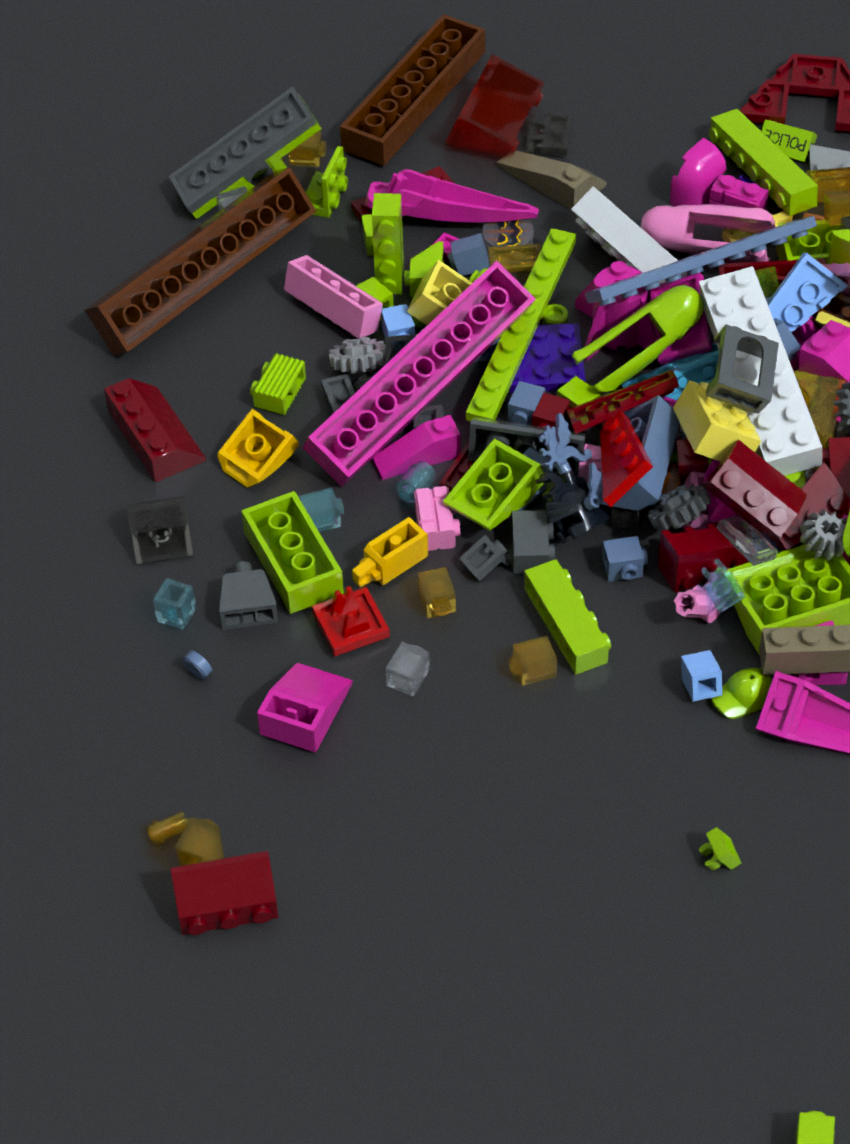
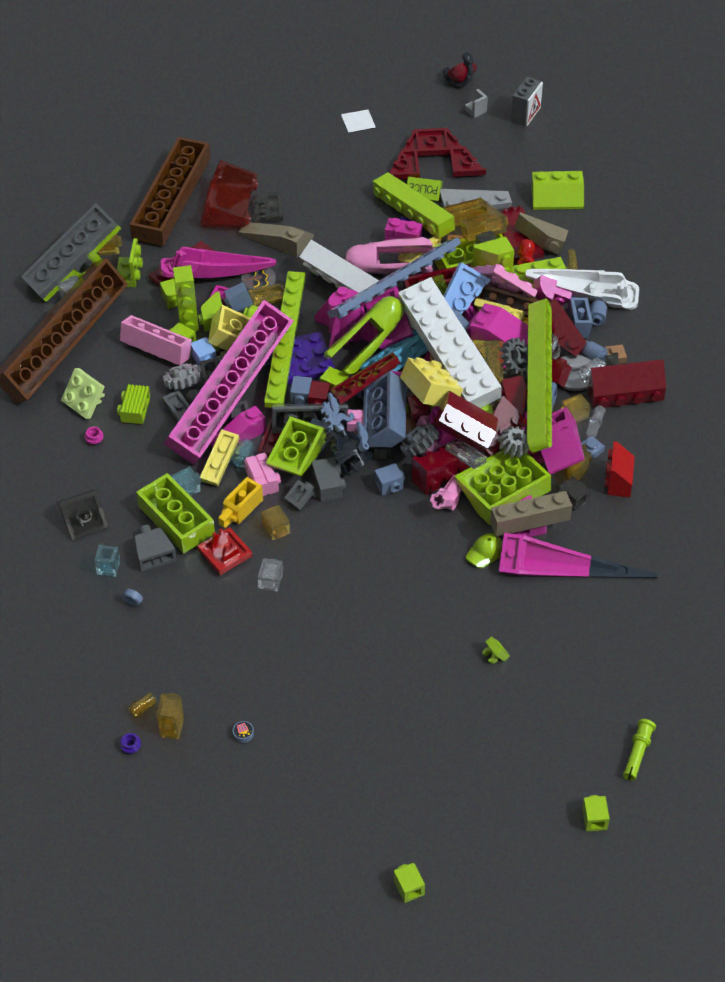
camera: 15 degrees left, 0 degrees up
(131, 875) = (127, 739): none -> dark purple plate
(152, 428) = (57, 448): dark red slope -> none
(208, 356) = (83, 393): none -> yellowish green plate
(209, 419) = (93, 435): none -> dark pink plate
(224, 893) = (193, 738): dark red slope -> none
(256, 450) = (132, 450): yellow slope -> none
(302, 706) = (209, 611): dark pink slope -> none
(304, 898) = (243, 731): none -> tile
(379, 482) = (219, 457): none -> light yellow plate
(533, 660) = (349, 554): clear yellow brick -> none
(555, 315) = (304, 328): lime tile -> none
(567, 616) = (362, 522): lime brick -> none
(622, 458) = (376, 415): red wing -> none
(697, 175) = (374, 221): dark pink brick -> none
(701, 675) = (457, 544): light blue brick -> none
(714, 30) = (358, 120): none -> white sticker
(723, 587) = (458, 486): clear light blue plate -> none
(736, 391) = (437, 359): dark grey panel -> none

